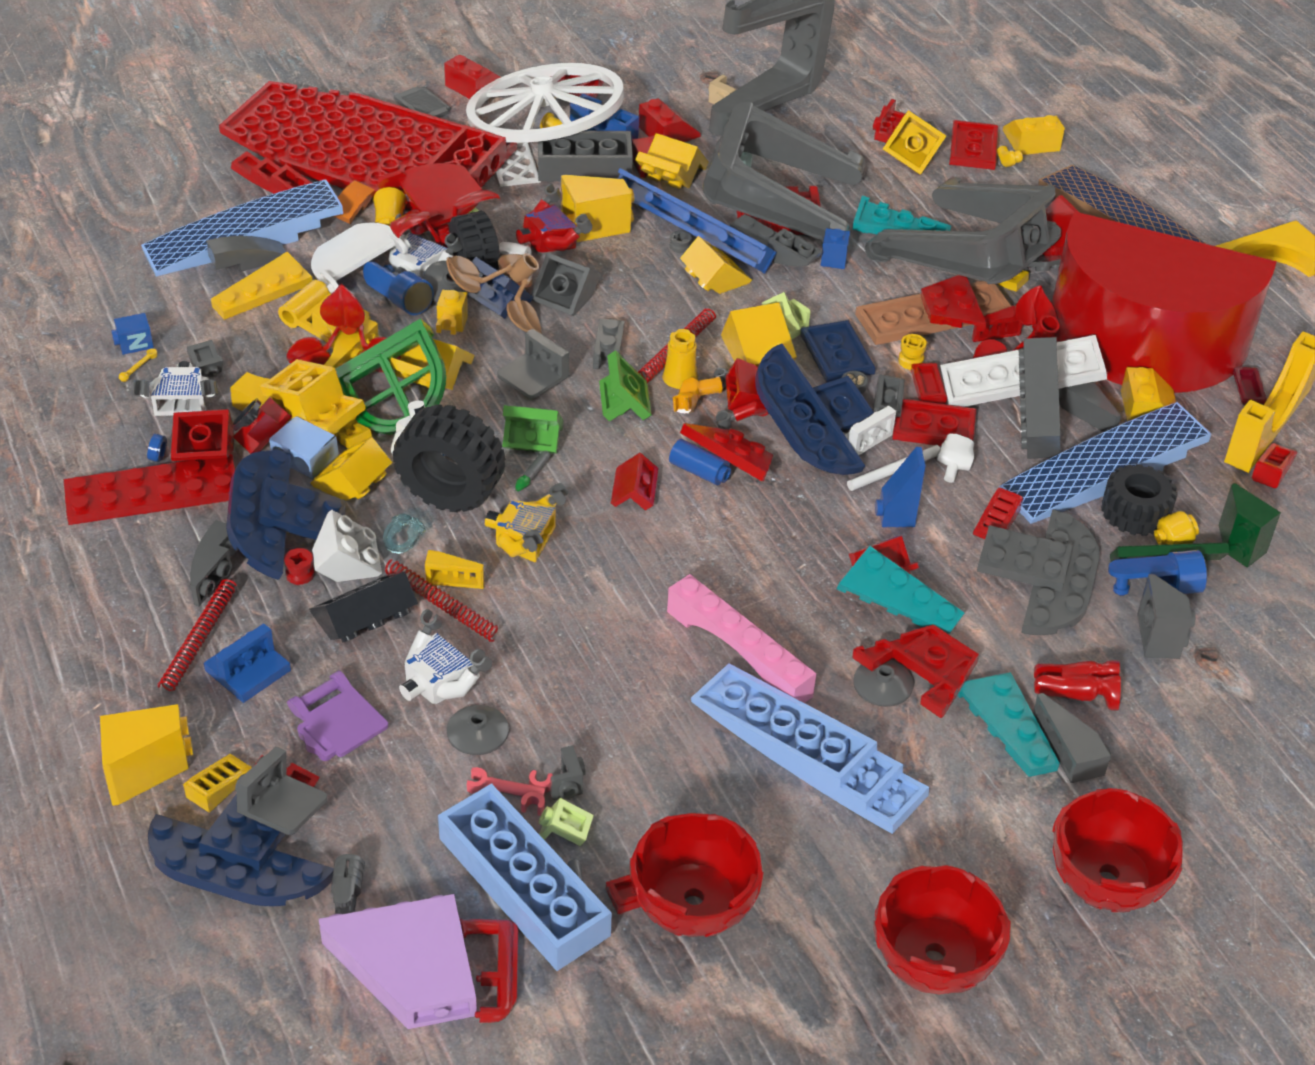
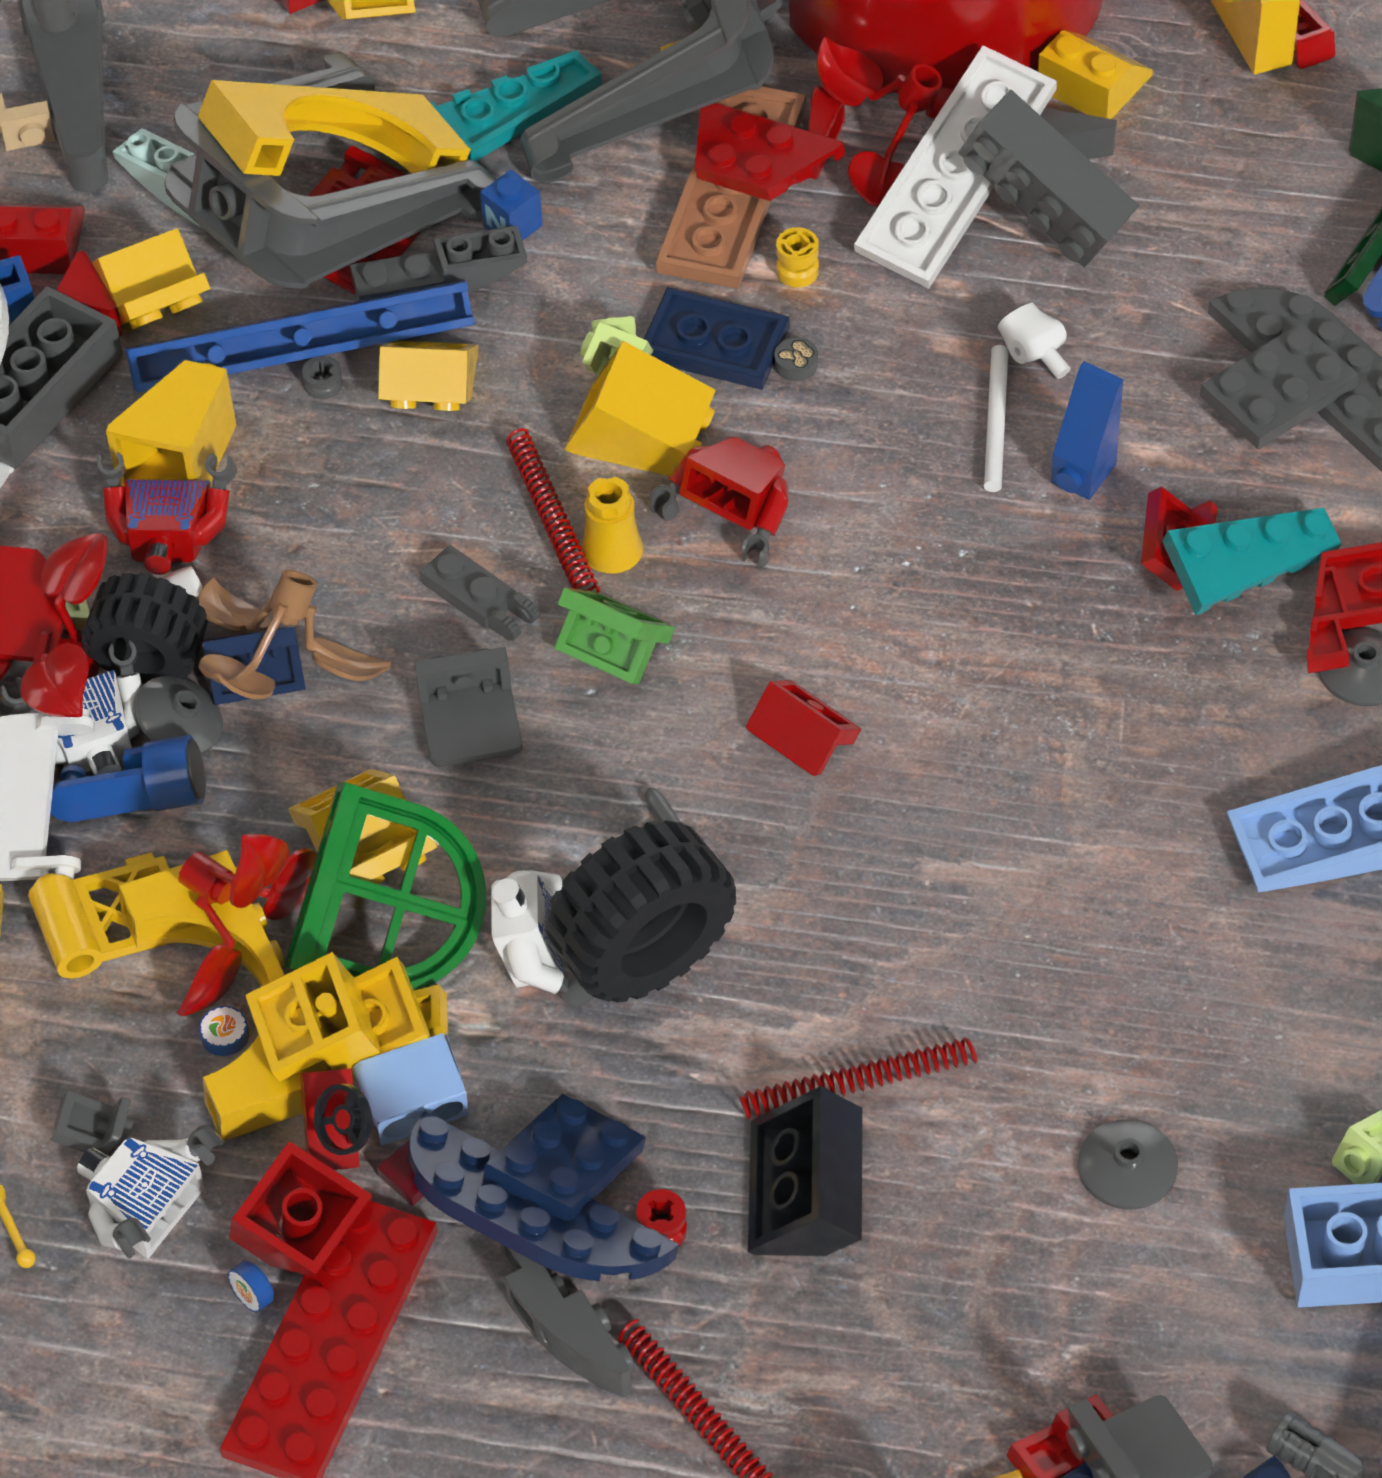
camera: 50 degrees left, 10 degrees up
(248, 664) = (811, 1382): blue bracket -> none
(339, 723) = (1005, 1318): medium lavender piece -> none
(346, 550) = (680, 1144): white slope -> none
(353, 471) = (511, 1053): yellow slope -> none
(396, 525) = (662, 1050): clear light blue piece -> none
(437, 667) = (1000, 1148): white torso -> none
(445, 568) = (812, 1039): yellow slope -> none
(452, 311) = (257, 745): yellow brick -> none
(527, 525) = (799, 897): torso -> none
(531, 429) = (605, 783): bright green bracket -> none
(531, 794) = (1284, 1155): coral bar -> none
(564, 284) = (323, 553): dark grey slope -> none
(571, 780) = (1297, 1093): dark grey bracket -> none
(692, 390) = (674, 557): light orange arm -> none
(697, 605) = (1110, 783): bright pink arch -> none
(700, 462) = (826, 625): blue brick -> none
(732, 447) = (842, 569): red wing -> none
(768, 125) = (257, 121): none -> yellow arch
(811, 416) = (843, 439): dark blue plate -> none
(872, 430) = (918, 405): white bracket -> none
(888, 393) = (863, 343): dark grey slope -> none
(928, 383) = (863, 280): red tile -> none
(932, 422) = (944, 323): red tile -> none
(1005, 502) = (1166, 340): red slope -> none
(1084, 469) = (1176, 191): slope -> none
(1138, 499) = (1277, 227): black tyre -> none
(1176, 529) = (1347, 202): yellow head -> none

